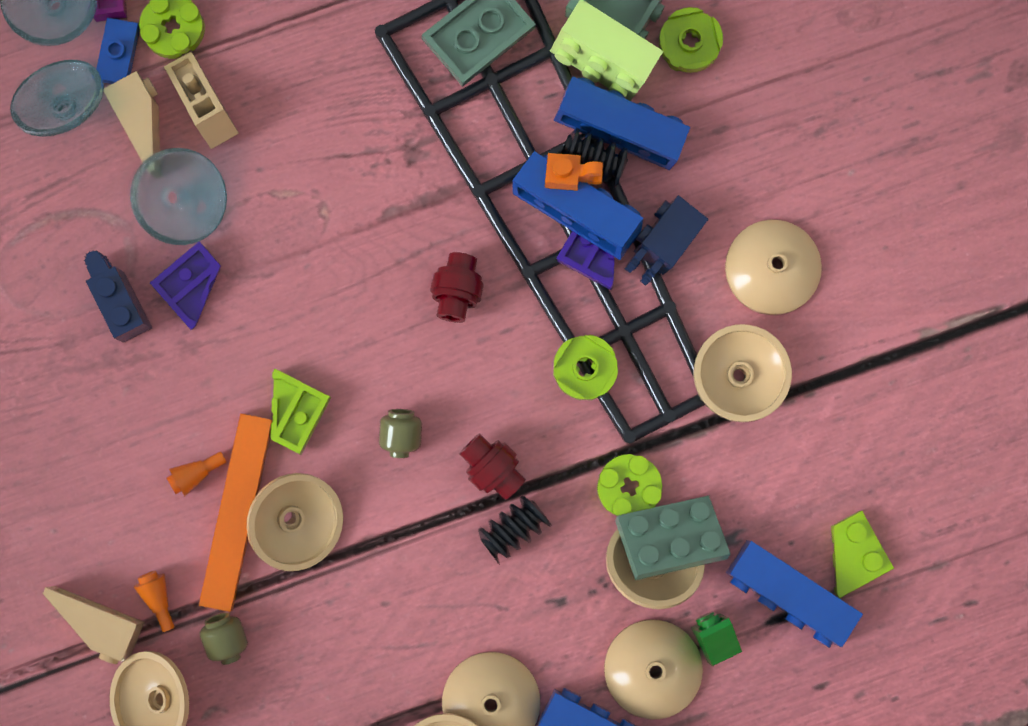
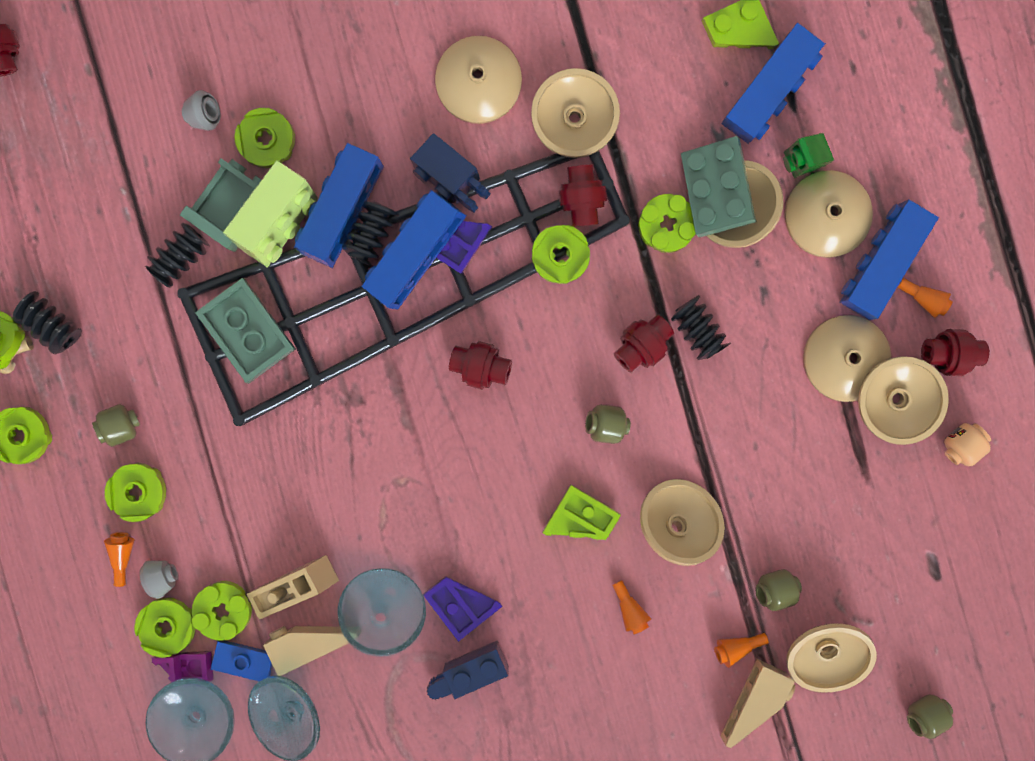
camera: 85 degrees left, 5 degrees up
(231, 531) = (661, 573): orange tile -> none
(566, 172) = (384, 257): orange plate -> none
(651, 386) = (582, 195): none -> dark red piece

